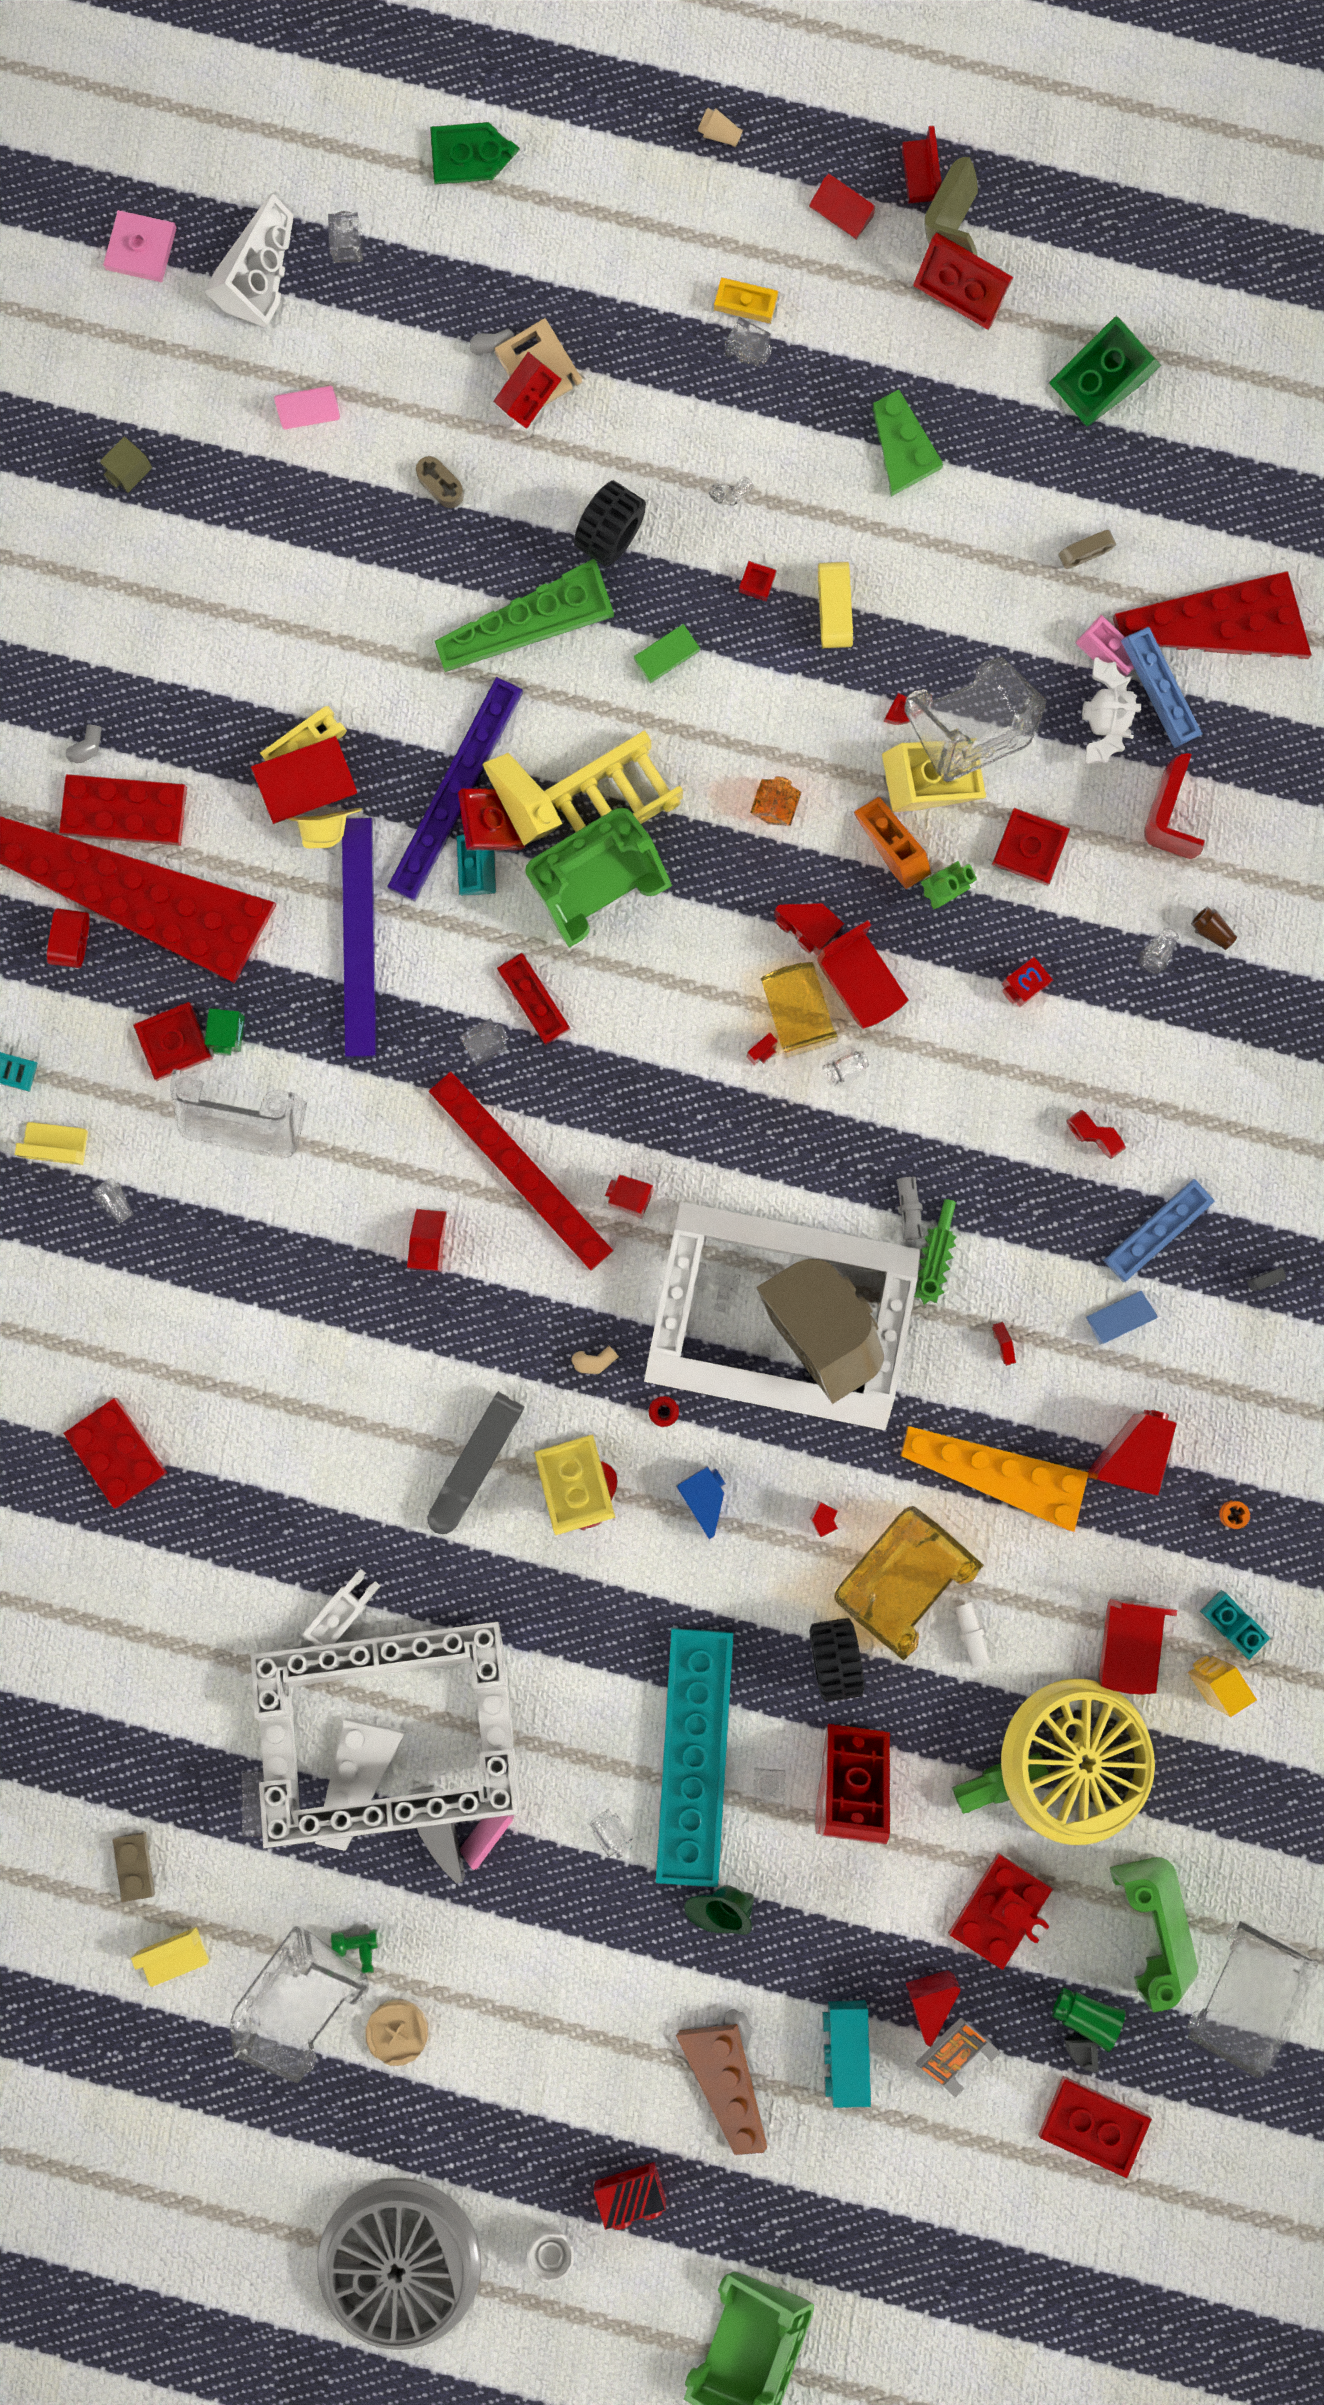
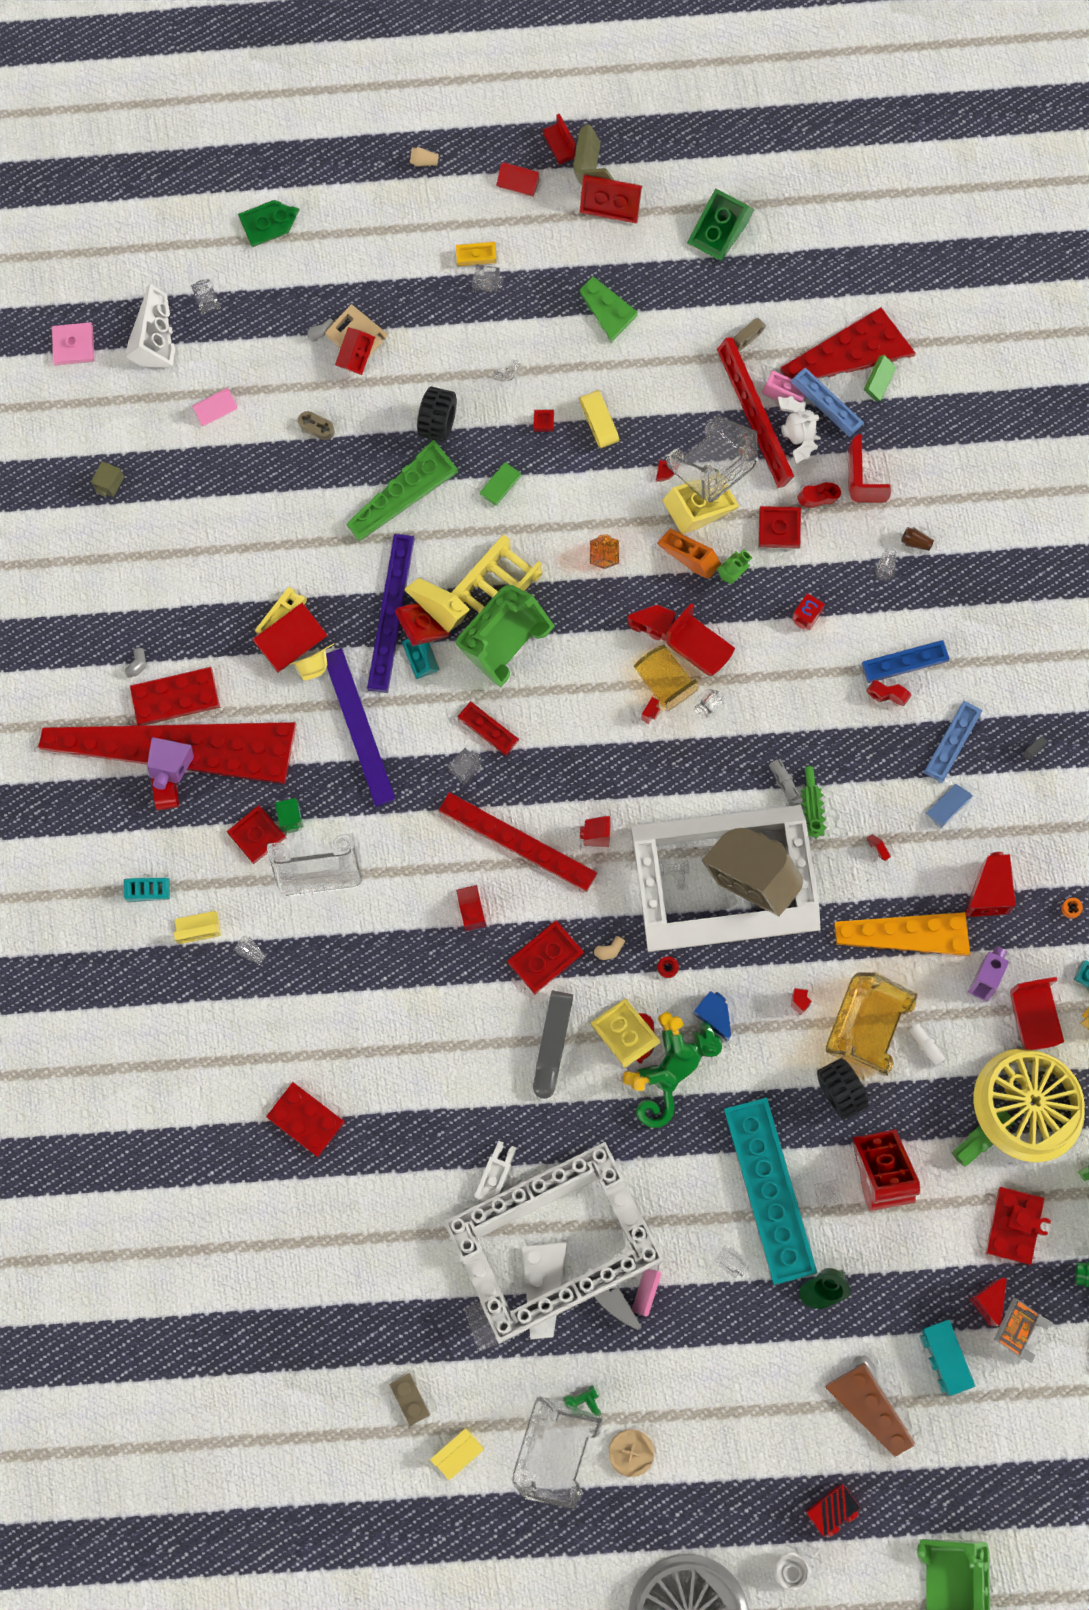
camera: 15 degrees left, 10 degrees down
(80, 903) = (168, 761): none -> medium lavender torso
(504, 1342) = (545, 957): none -> red tile
(626, 1552) = (677, 1064): none -> green animal
(1055, 667) = (755, 412): none -> red plate
(1090, 1570) = (989, 974): none -> medium lavender torso
(1102, 818) = (817, 495): none -> red piece
(1135, 1097) = (905, 661): none -> blue plate
(1248, 676) = (880, 378): none -> tile

